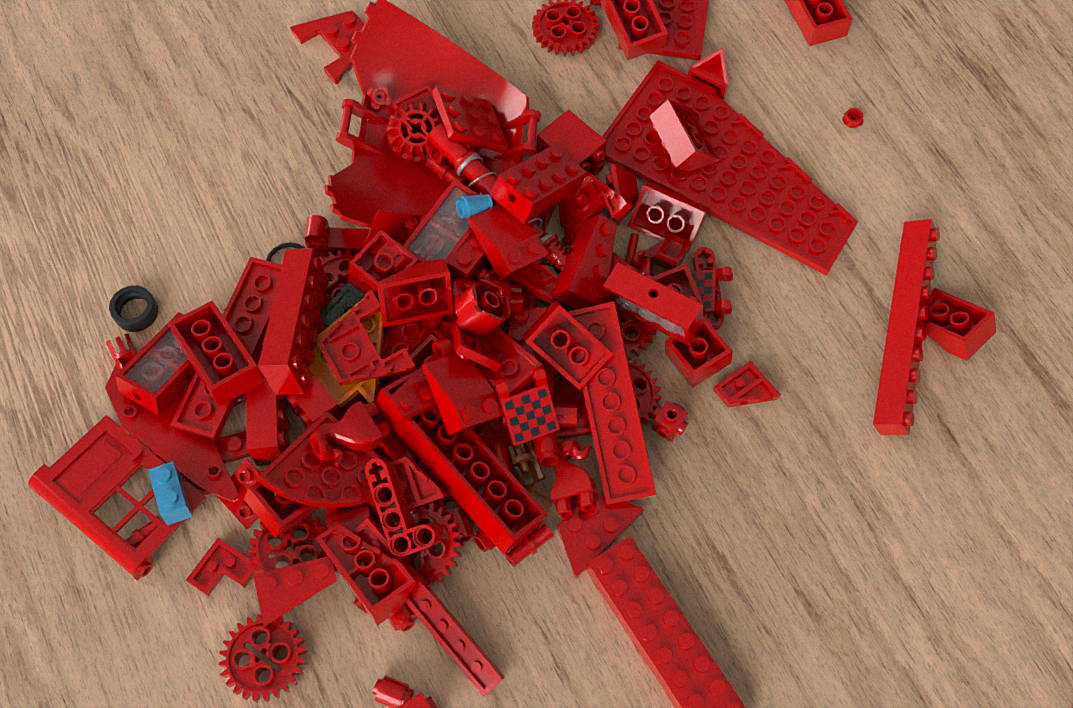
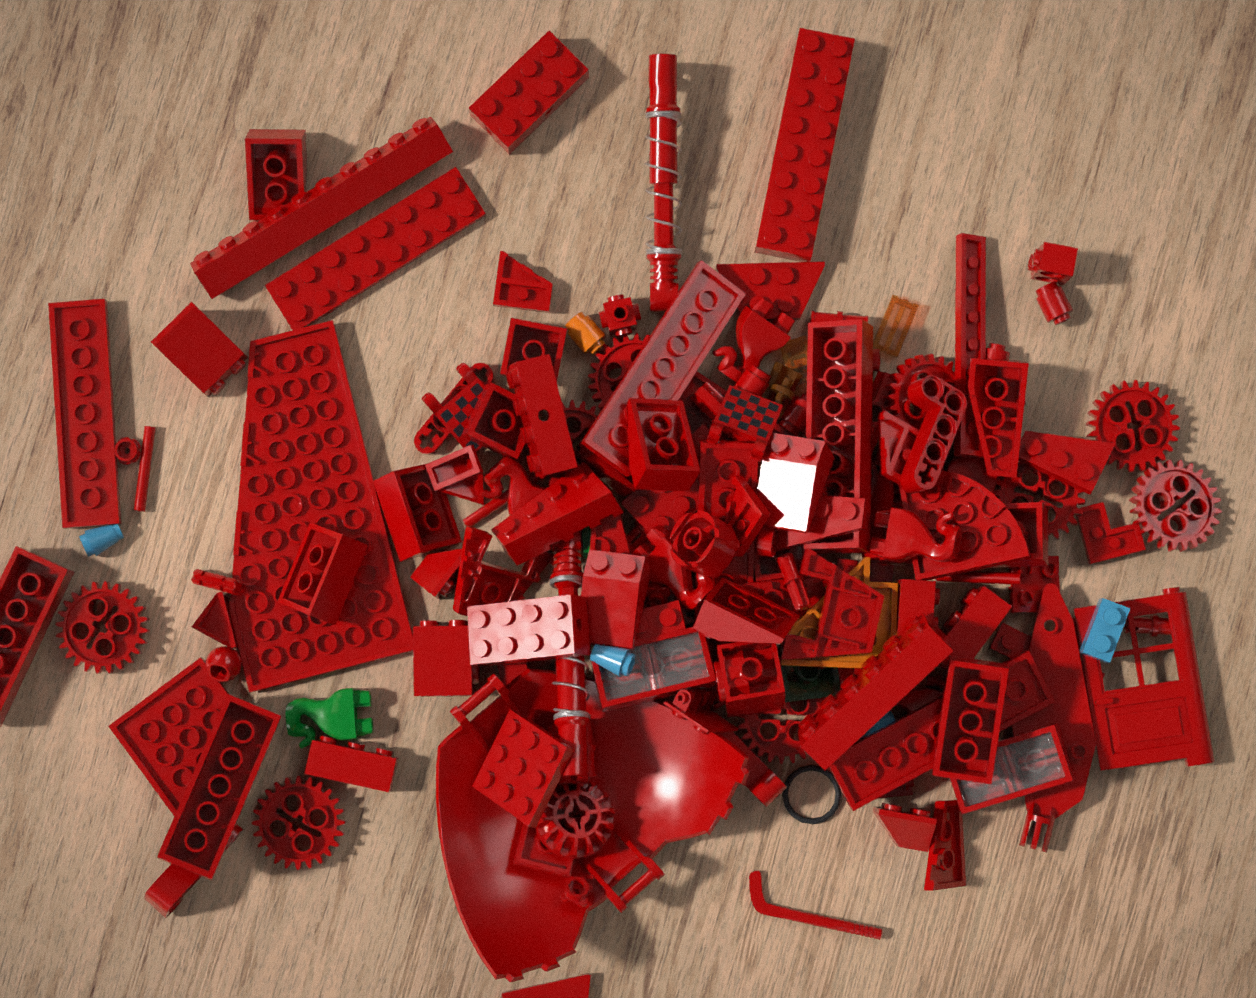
camera: 135 degrees left, 20 degrees up
(127, 294) = (974, 881): black tyre -> none
(164, 623) = (1159, 484): none -> red gear
(170, 287) = (946, 850): none -> red wing
(213, 283) = (907, 830): none -> red slope
(260, 187) = (765, 908): none -> red piece
(400, 341) = (793, 581): none -> red axle
(483, 558) = (903, 304): none -> clear orange tile
(566, 71) = (352, 764): none -> red brick
(601, 86) = (334, 715): none -> green hips
(679, 393) = (585, 333): none -> orange brick
(685, 59) = (223, 664): none -> red piece
(734, 93) = (216, 581): none -> red axle
(765, 30) = (81, 612): none -> red gear
(803, 591) = (663, 174): none -> red piece
(815, 66) = (101, 538): none -> dark azure cone
(836, 121) = (144, 468): none -> red piece
(848, 337) = (375, 250): none -> red plate
(870, 507) = (529, 92): none -> red brick
(879, 191) = (200, 350): none -> red slope
(898, 117) = (84, 413): none -> red plate

